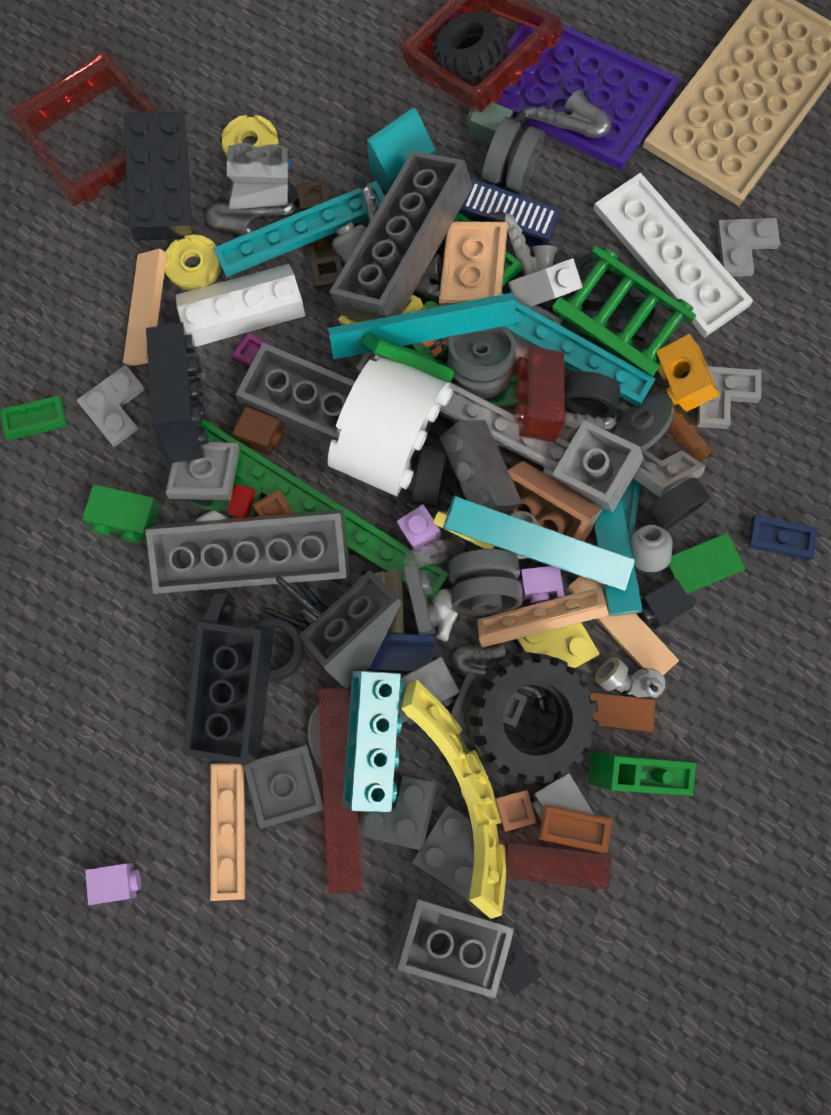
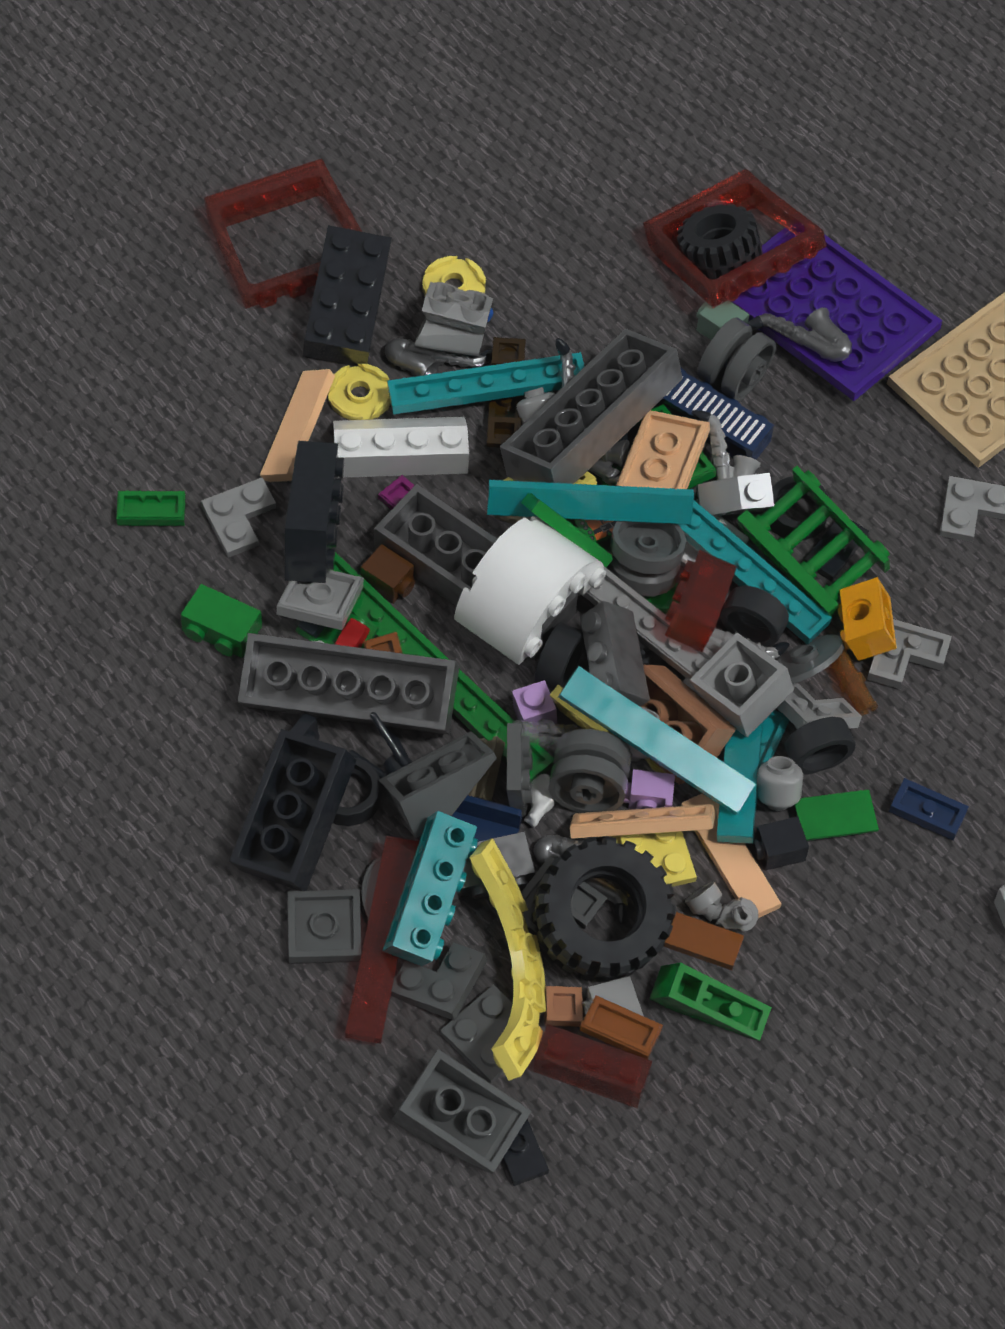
camera: 10 degrees right, 15 degrees down
(112, 883) = (122, 973): lavender brick -> none
(227, 832) = (253, 956): light nougat tile -> none
(393, 145) = (608, 317): teal slope -> none
(672, 253) = (888, 499): white plate -> none

